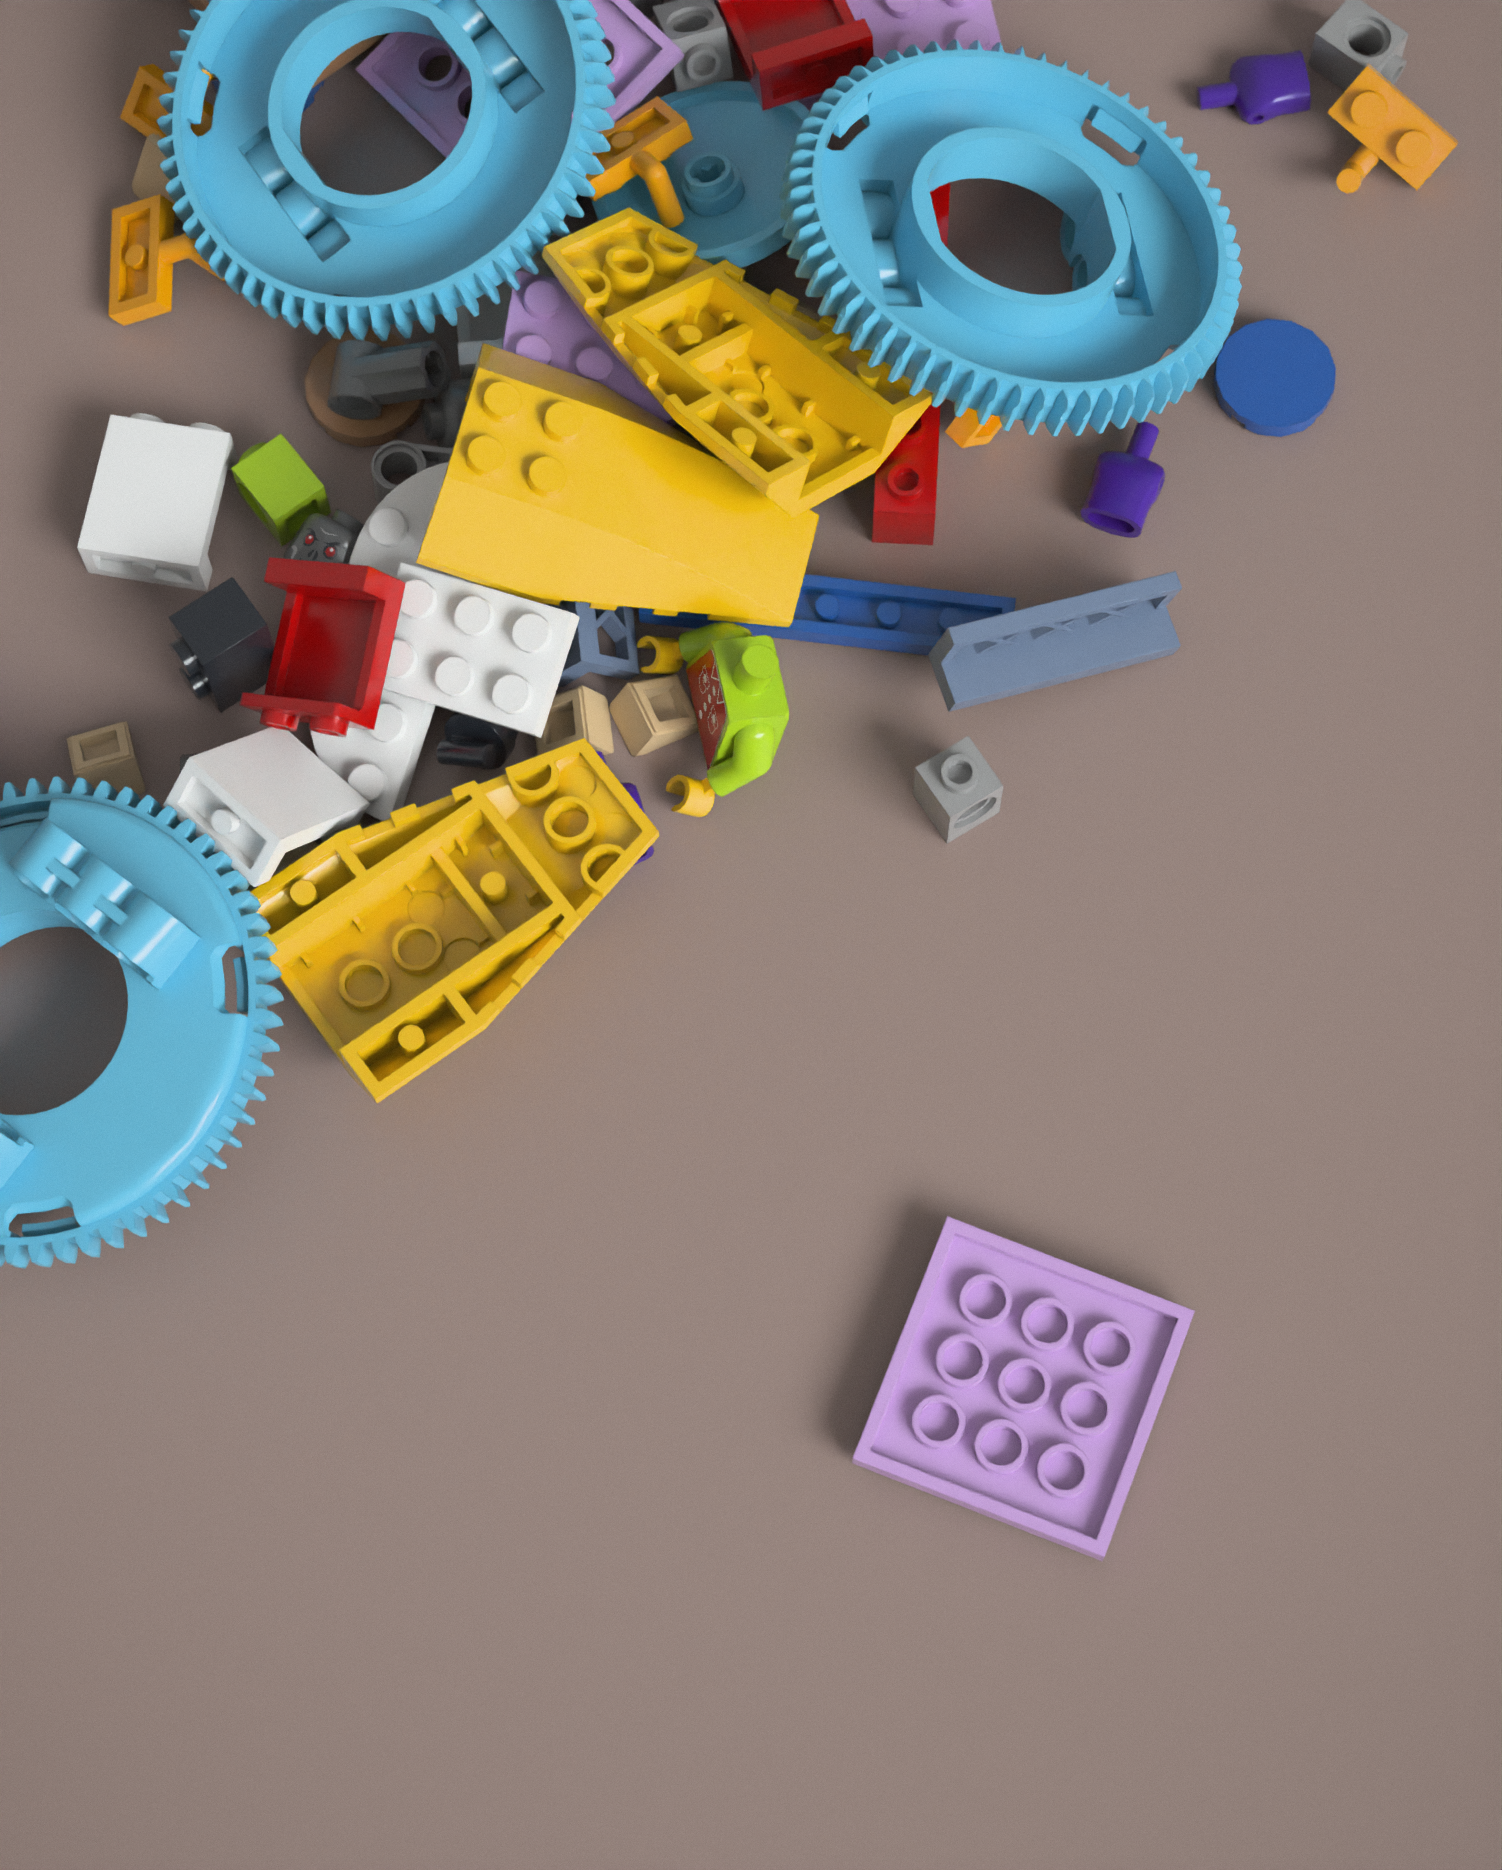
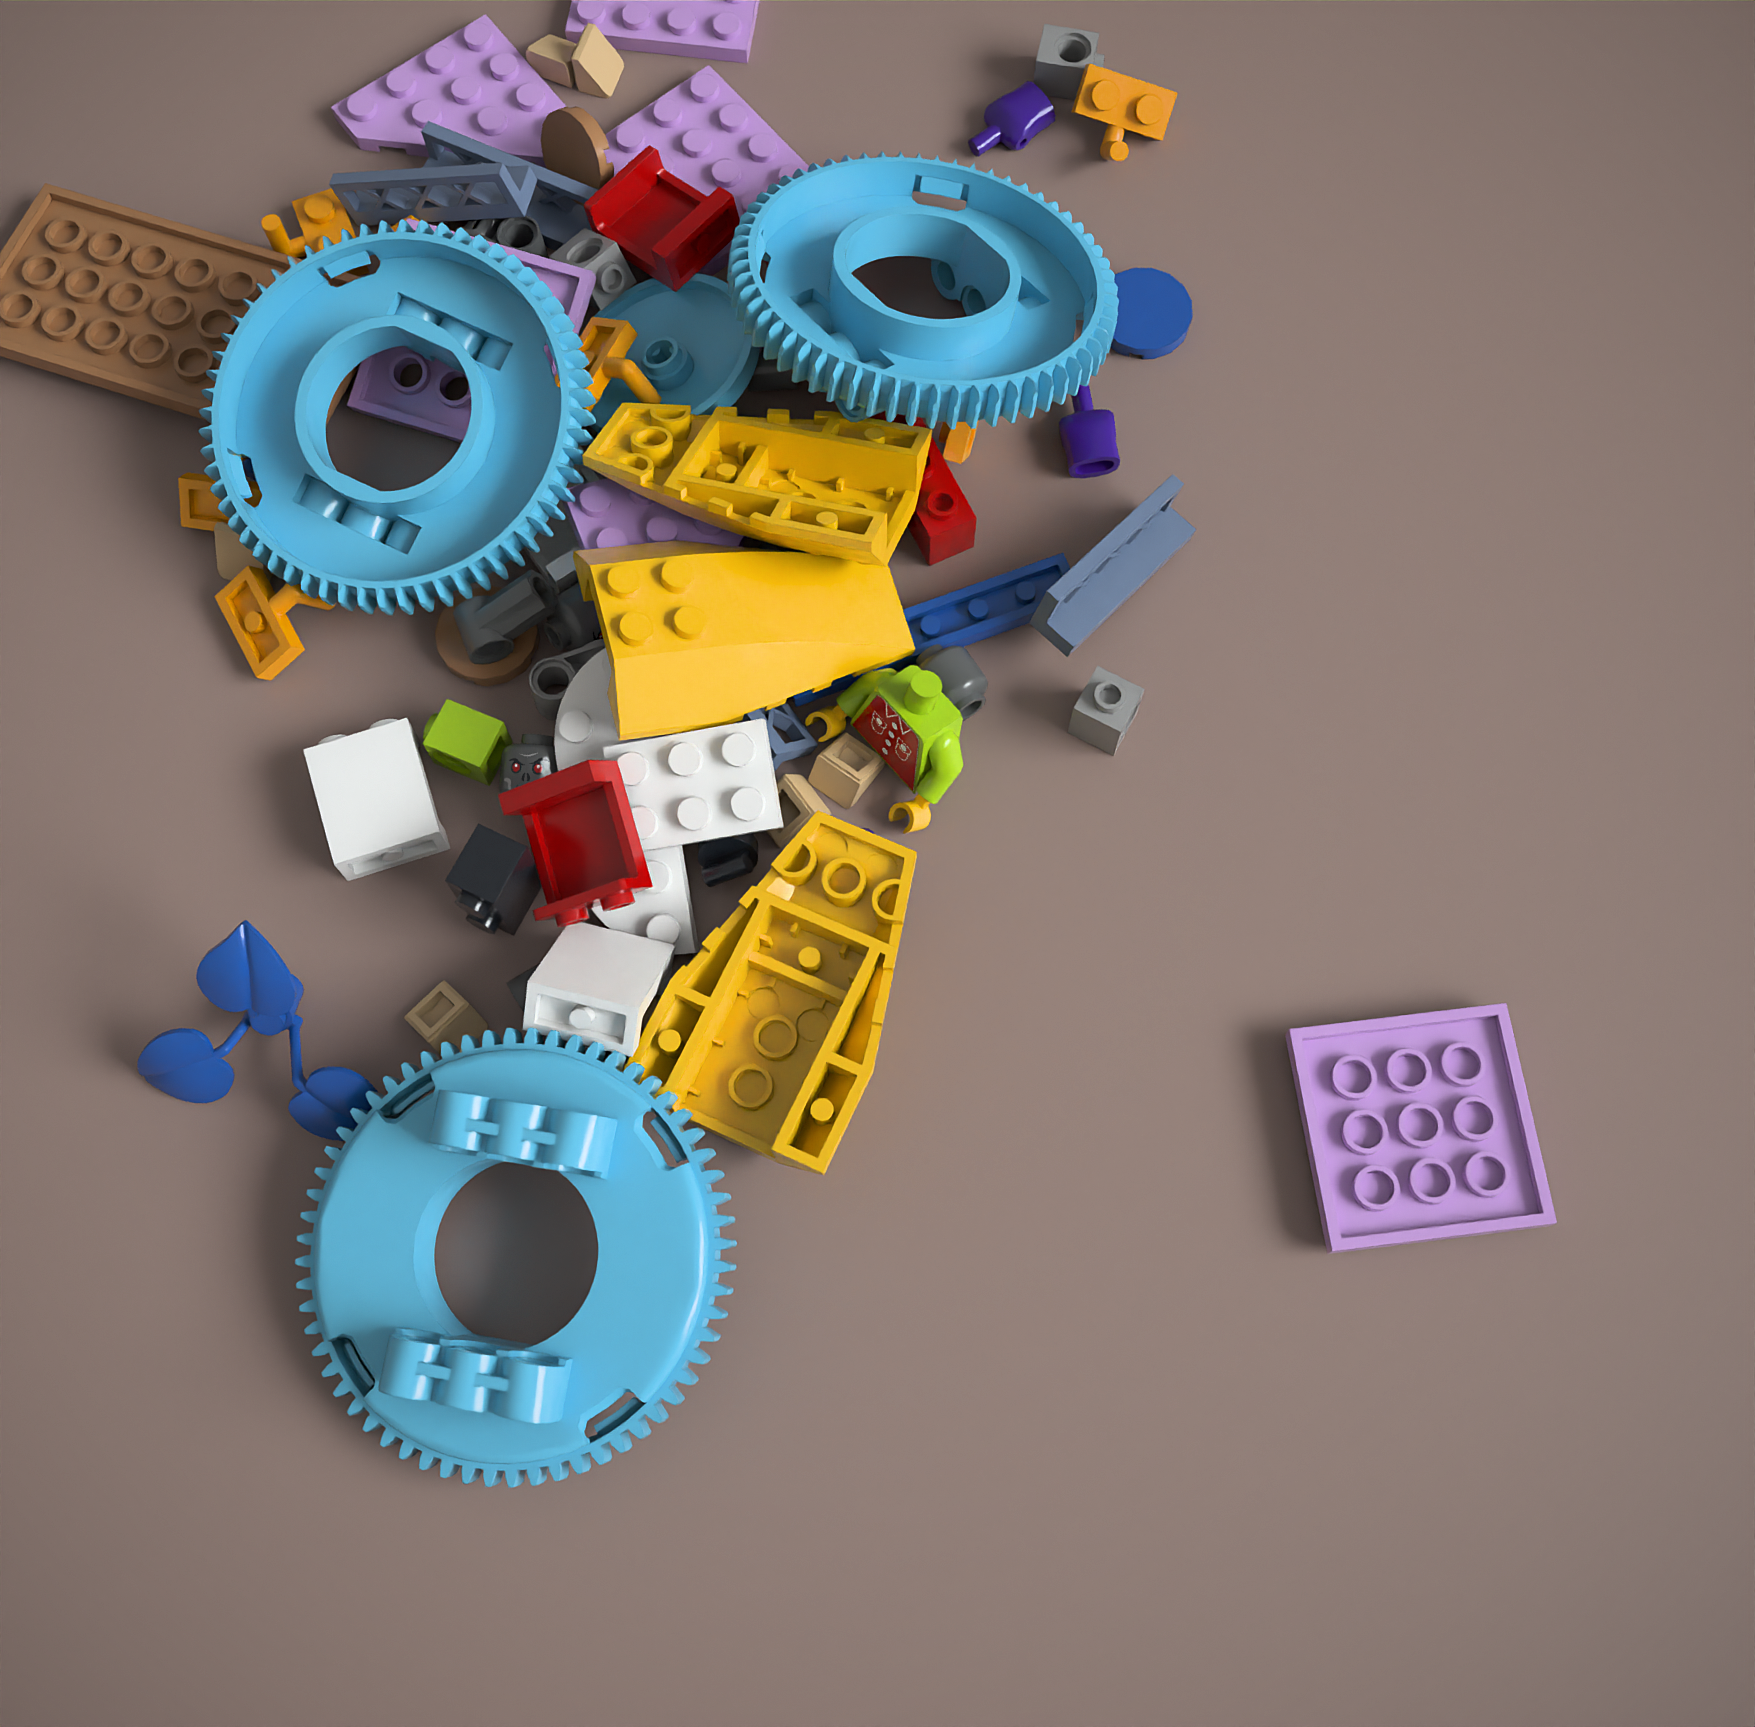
camera: 30 degrees left, 0 degrees up
(814, 676) = (960, 676): none -> dark grey head

